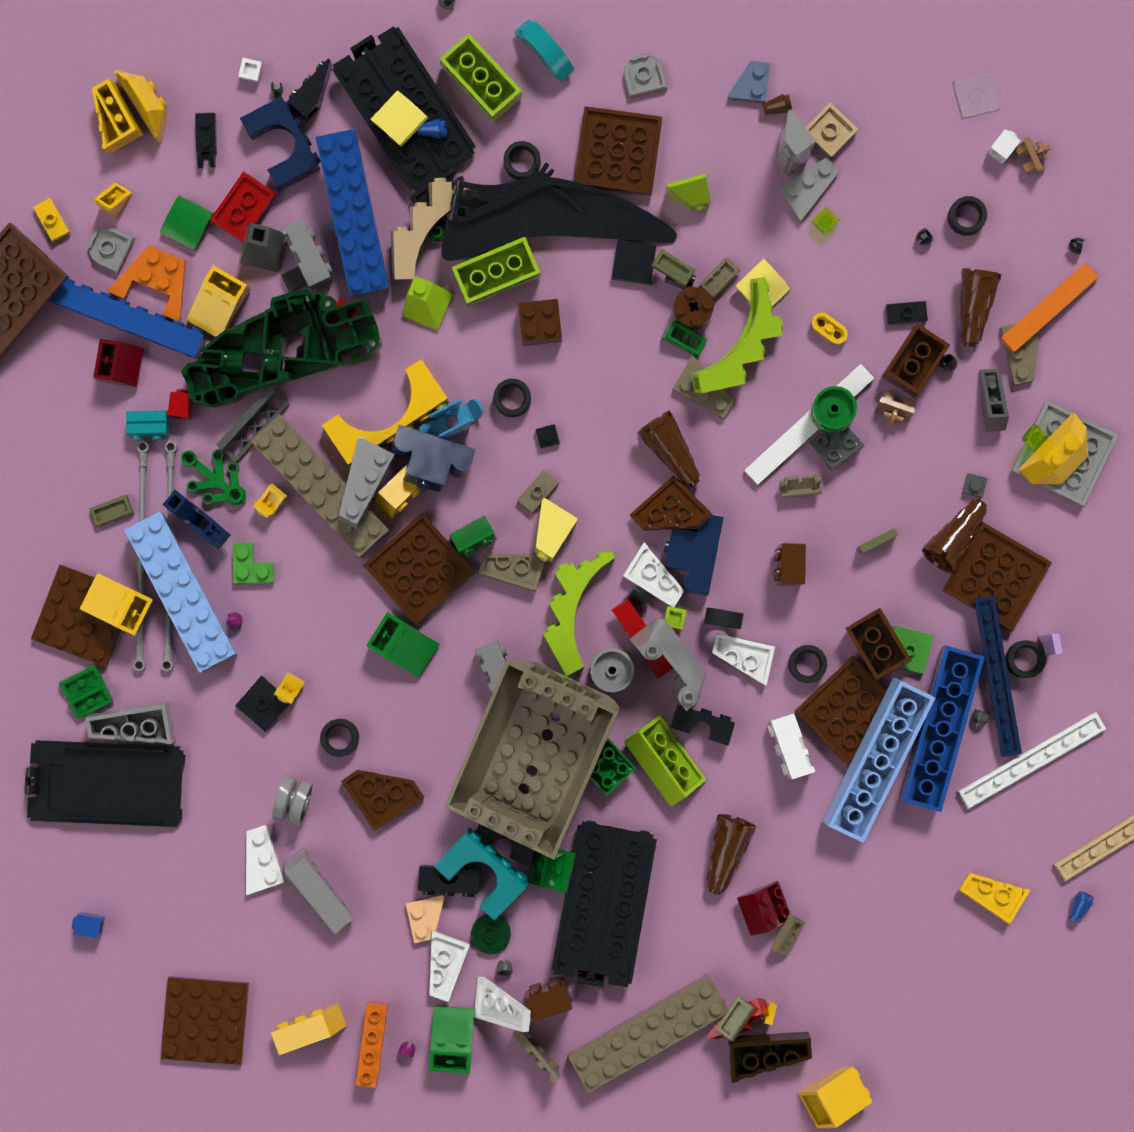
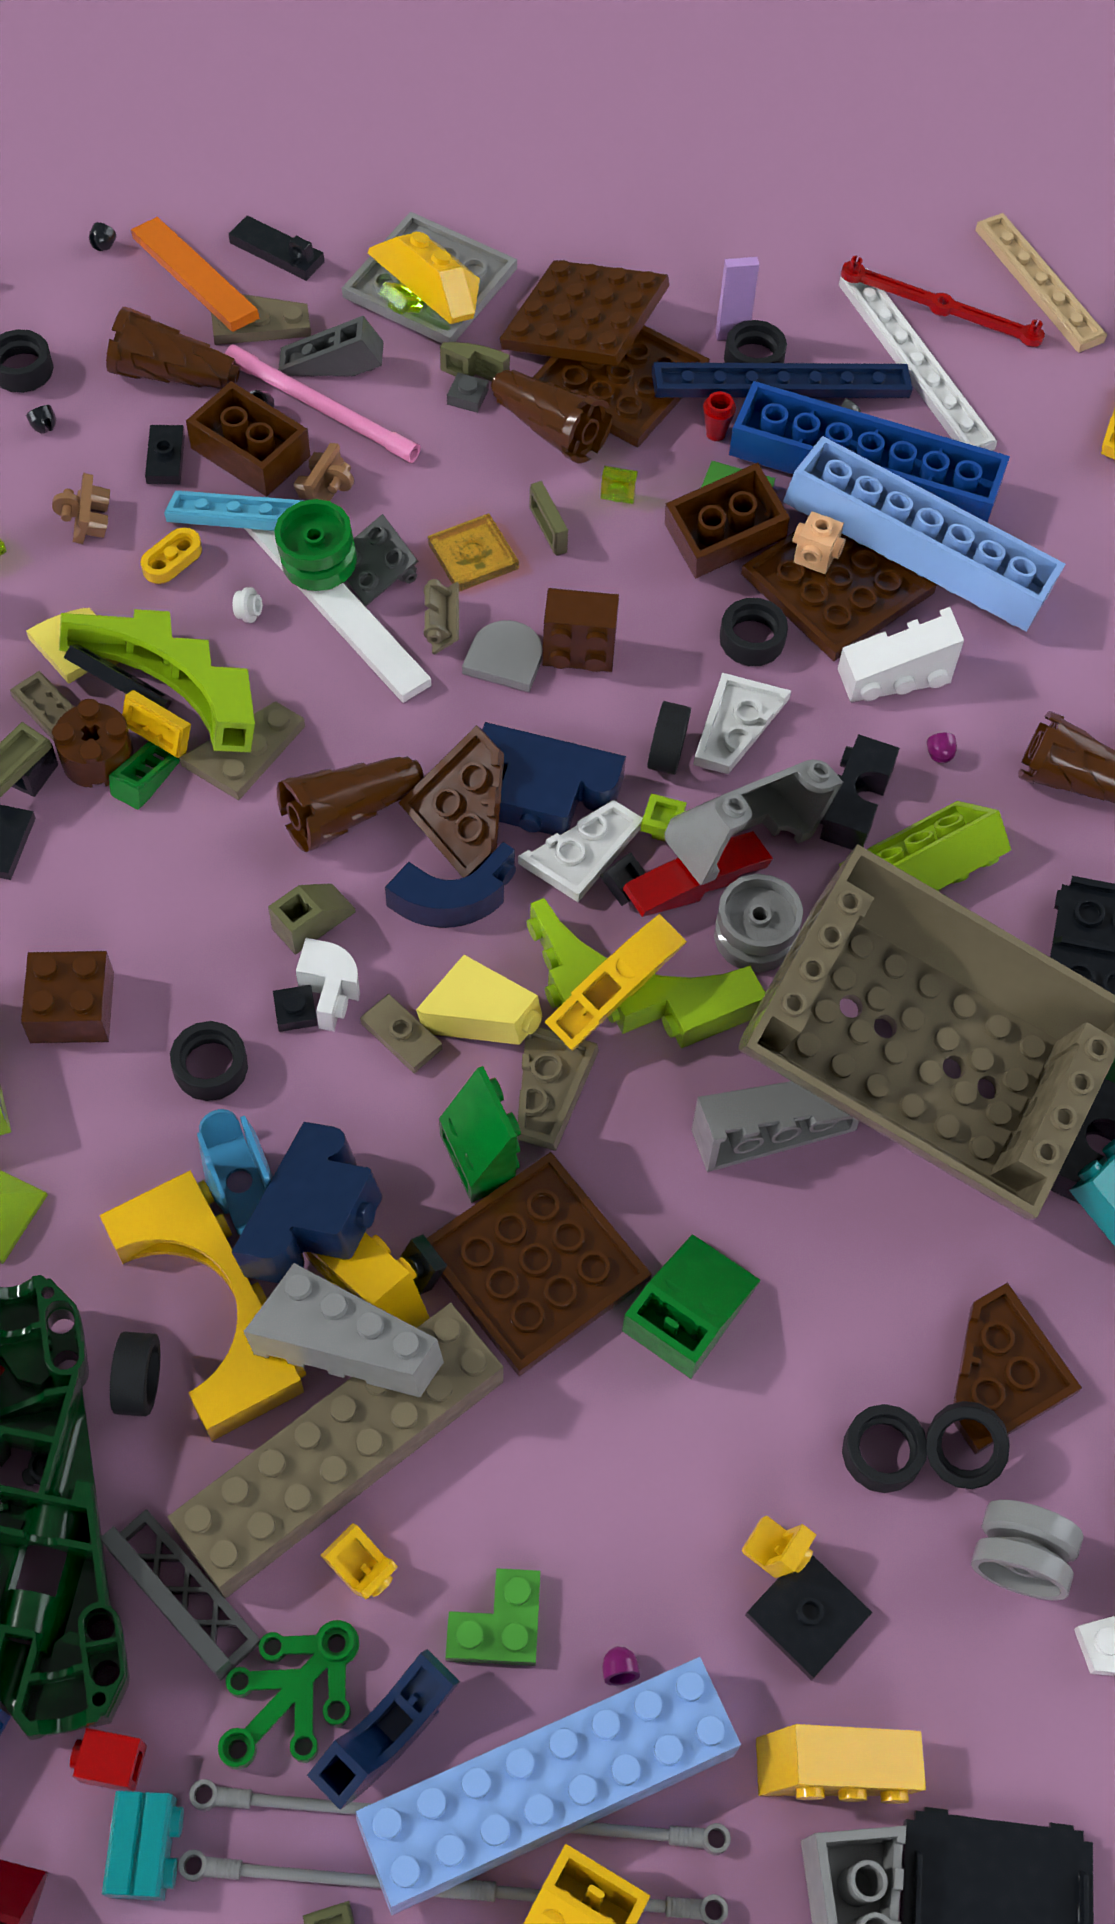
camera: 90 degrees left, 25 degrees down
(197, 718) = (840, 1763): none -> yellow wedge
(329, 770) = (966, 1478): none -> black tyre
(345, 388) = (135, 1373): none -> black tyre
(412, 514) = (425, 1262): none -> black plate
(563, 597) = (615, 981): none -> yellow slope
(566, 454) = (331, 973): none -> white brick
(599, 437) = (308, 913): none -> olive slope
(613, 511) = (451, 902): none -> dark blue arch
(707, 339) = (156, 724): none -> yellow plate
(733, 317) = (114, 675): none -> black hinge
(737, 771) = (942, 747): none -> magenta hinge
(780, 524) = (505, 655): none -> light grey tile
(797, 376) = (247, 604): none -> white plate
(852, 499) = (473, 552): none -> clear yellow tile
(858, 698) = (818, 542): none -> light nougat brick
(863, 359) = (226, 510): none -> medium azure tile
(866, 274) = (79, 506): none -> medium nougat hips
(906, 580) = (618, 484): none -> clear neon green plate
(969, 637) = (718, 414): none -> red cone
(981, 353) = (390, 440): none -> bright pink piece
(995, 482) = (472, 360): none -> olive slope
(1040, 551) = (585, 312): none -> reddish brown plate
(1062, 833) = (942, 303): none -> red piece
(1083, 354) = (277, 248): none -> black hinge

